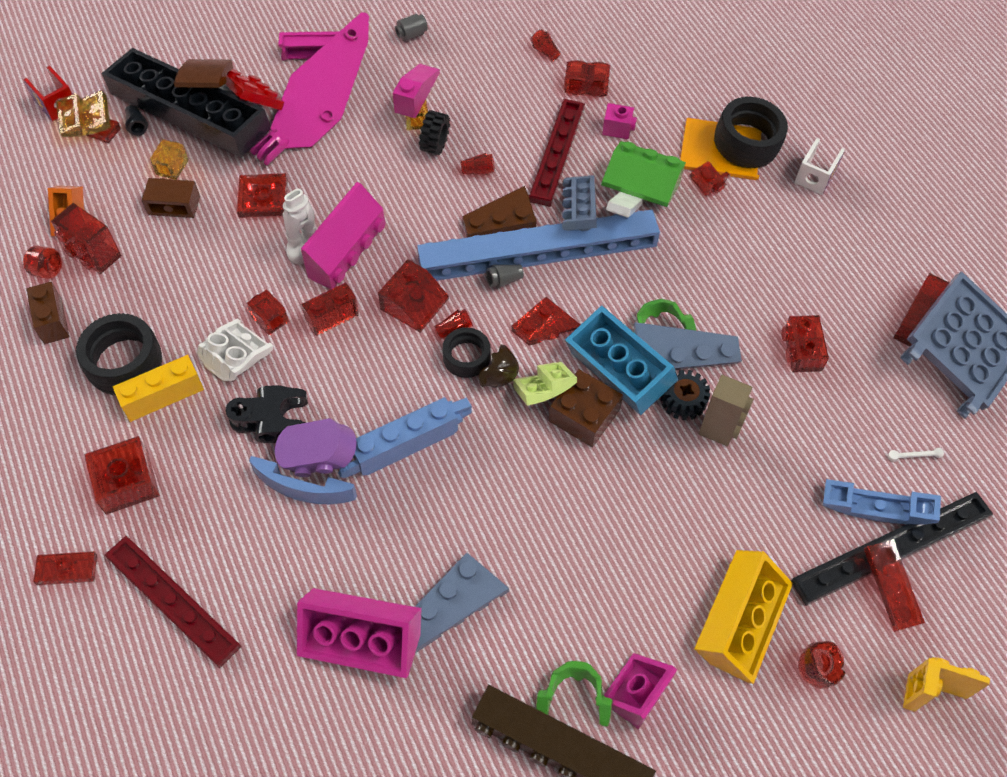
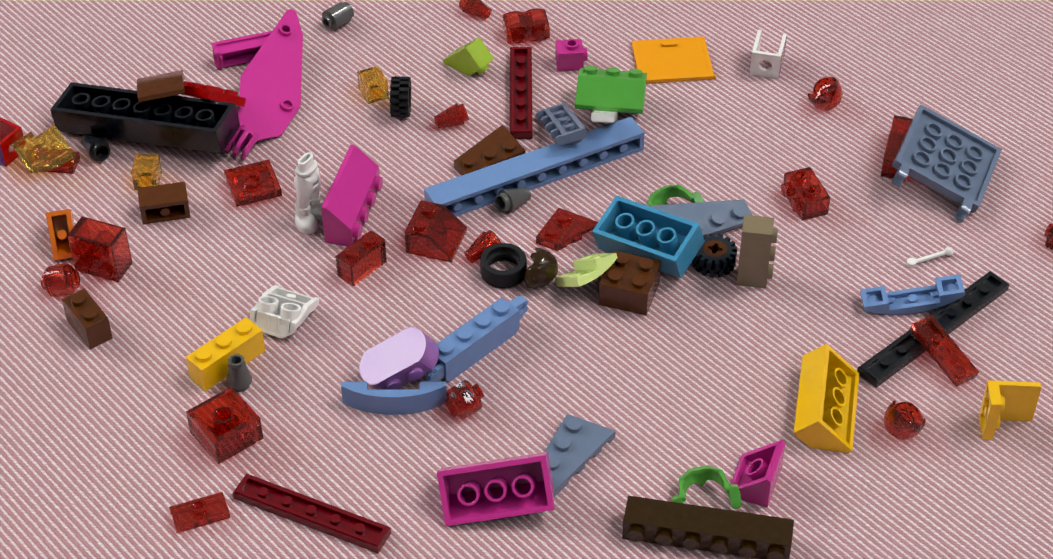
camera: 15 degrees left, 15 degrees down
(108, 331) = (169, 314): black tyre -> none
(161, 415) = (238, 373): none -> dark grey cone
(266, 411) = (336, 351): black piece -> none
(267, 312) = (302, 273): clear red brick -> none
(368, 507) = (464, 399): none -> clear red head
(413, 90) = (368, 64): dark pink slope -> none
(520, 102) = (470, 58): none -> lime slope
(709, 179) = (671, 86): clear red bracket -> none
(755, 113) = (695, 53): black tyre -> none
(865, 227) = (826, 93): none -> clear red hair

